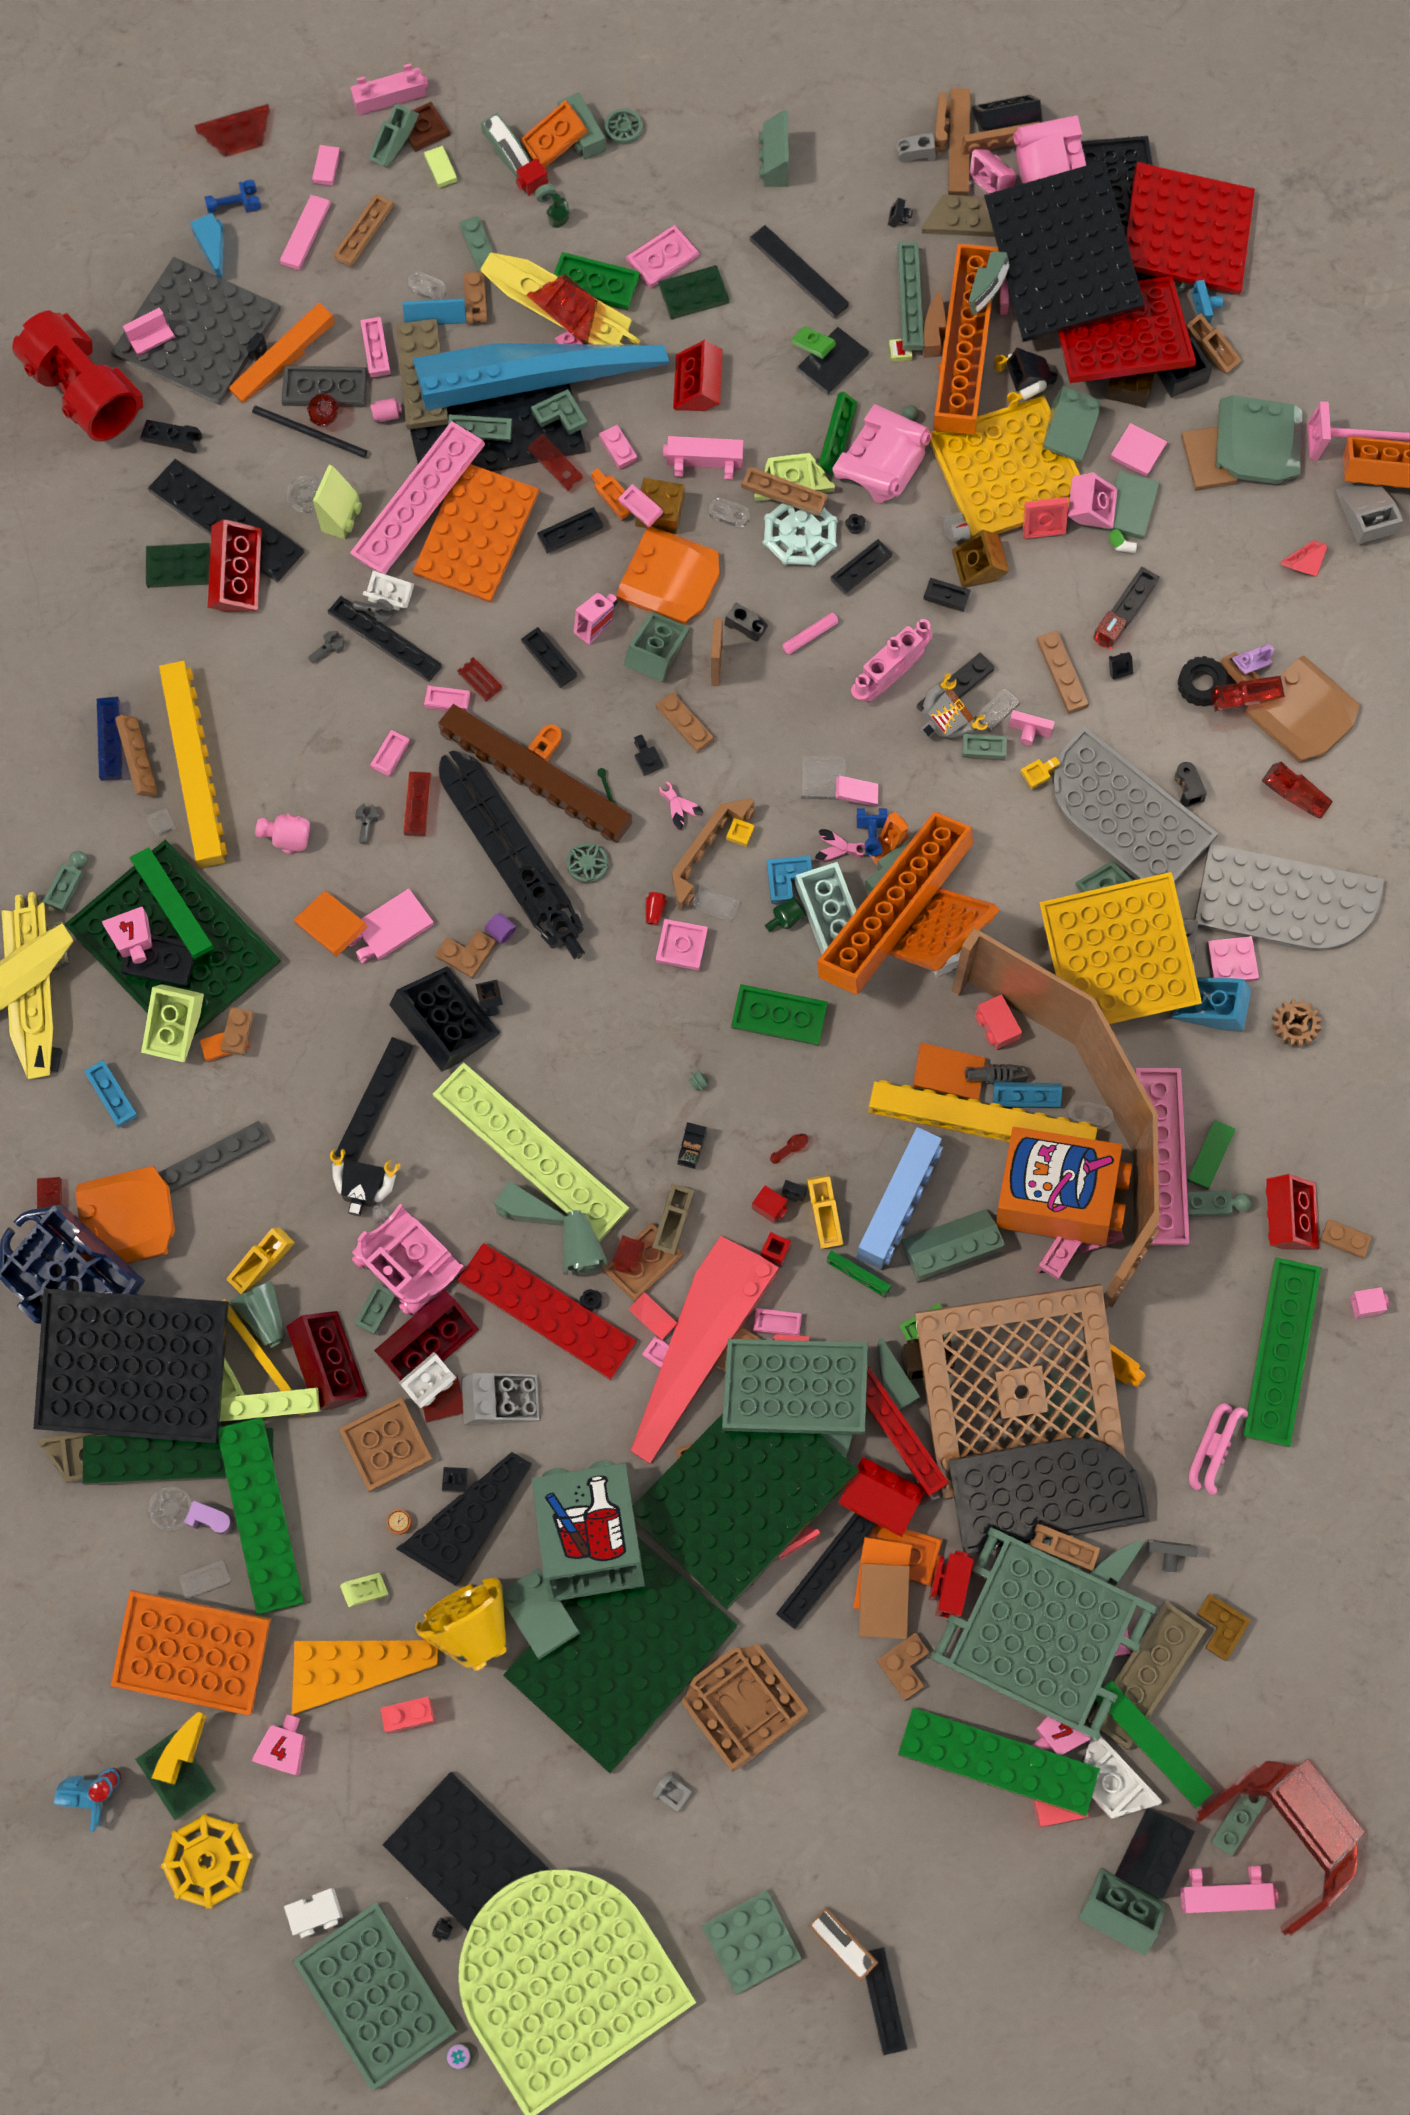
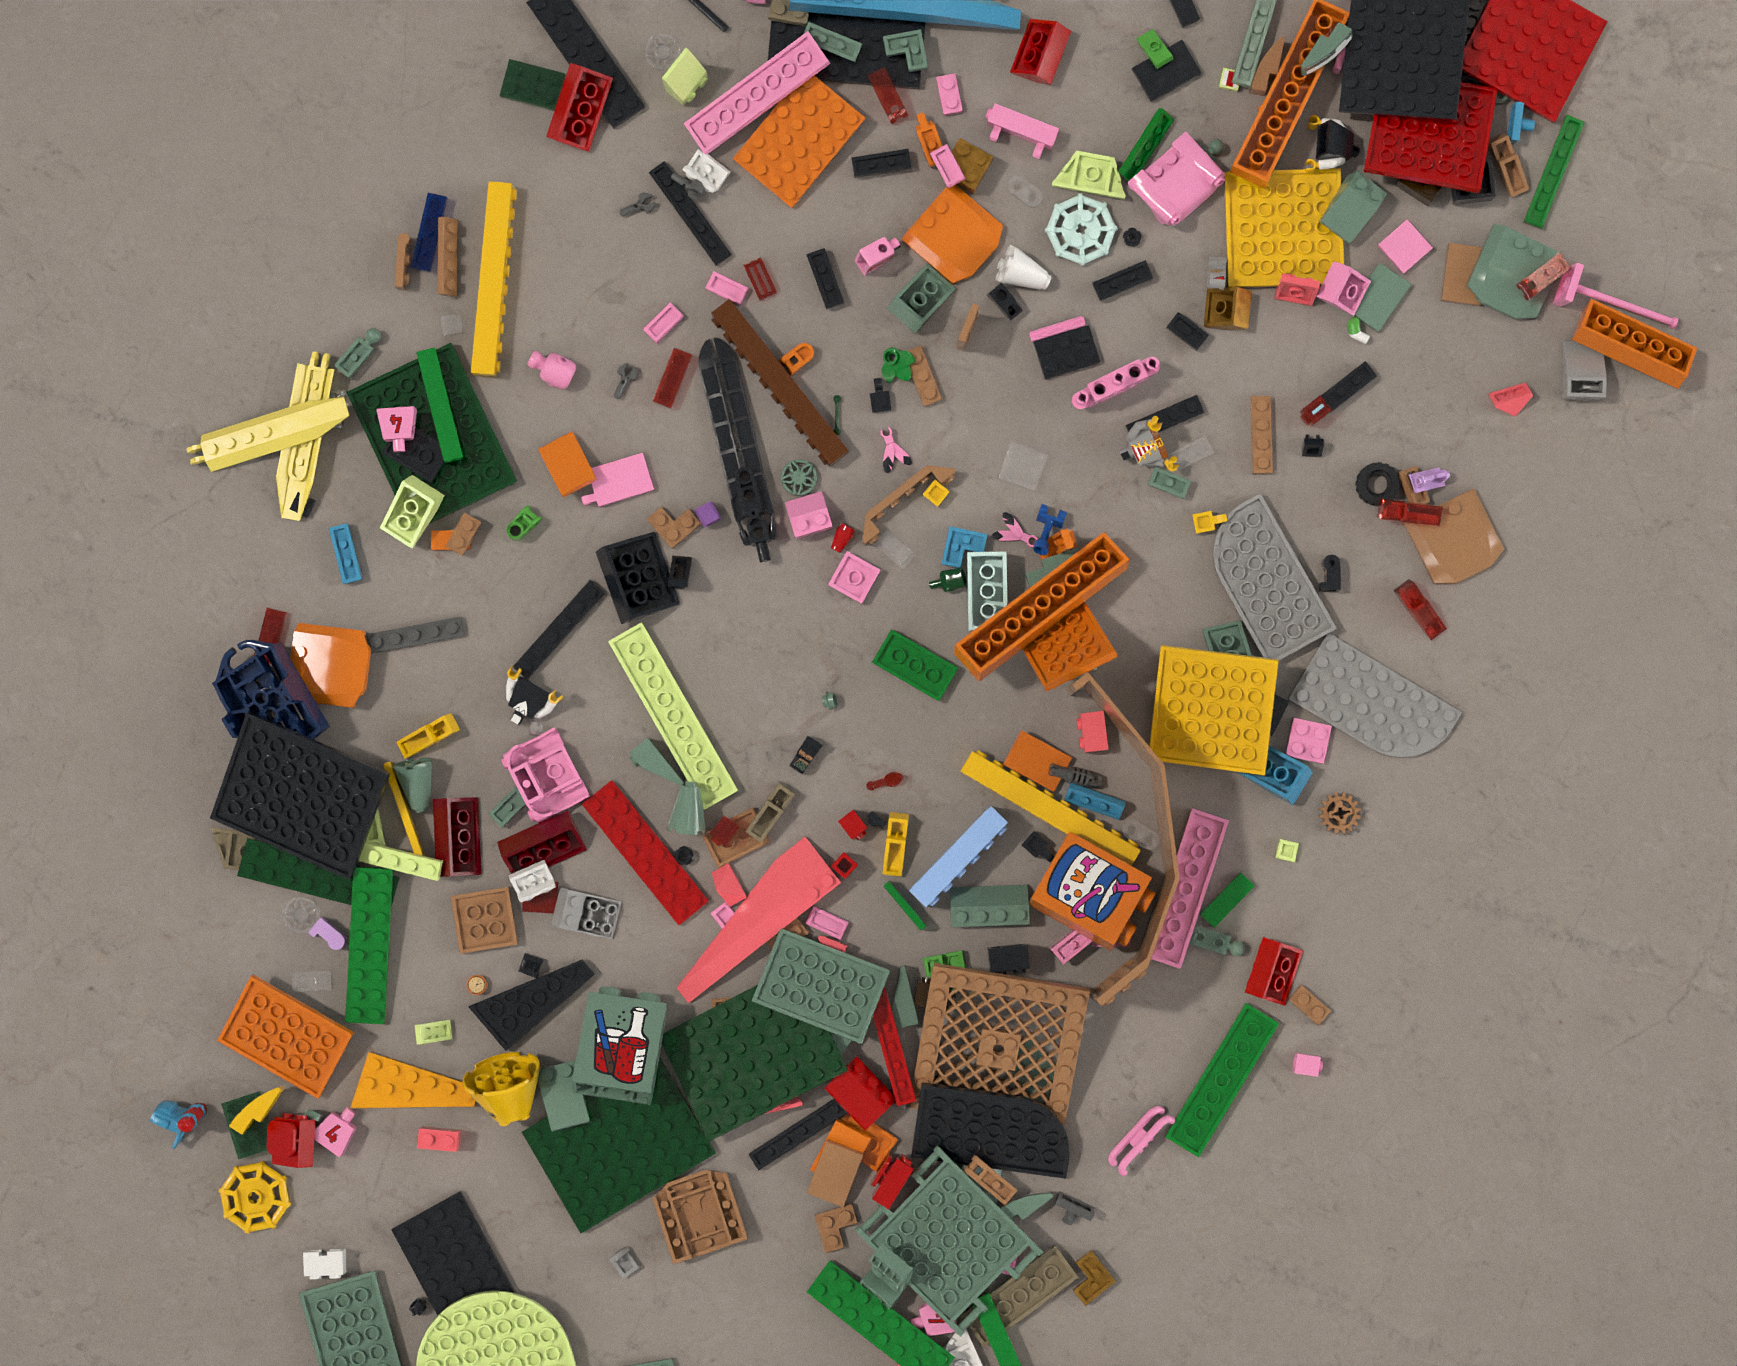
camera: 25 degrees right, 15 degrees up
(89, 774) = (402, 261): none -> medium nougat plate
(232, 1773) = (291, 1140): none -> red brick
(250, 1738) = (314, 1115): none -> sand green tile
(302, 998) = (524, 523): none -> bright green piece
(611, 897) = (808, 515): none -> bright pink slope
(657, 719) = (898, 367): none -> green plate
(753, 586) = (1021, 270): none -> white cone
(784, 491) = (1078, 190): medium nougat plate -> none
(828, 653) = (1066, 352): none -> black plate
(856, 791) = (1046, 489): bright pink tile -> none
(981, 1162) = (1036, 845): none -> black plate
(987, 1694) = (887, 1276): none -> sand green plate
(995, 1286) = (1008, 958): none -> black brick
(1030, 726) = (1214, 478): bright pink tile -> none
(1125, 1367) = (1090, 1051): light orange hinge -> none
(1255, 1082) = (1286, 850): none -> yellowish green tile
(1259, 338) = (1553, 172): none -> green tile
(1291, 428) = (1544, 276): none -> clear red plate

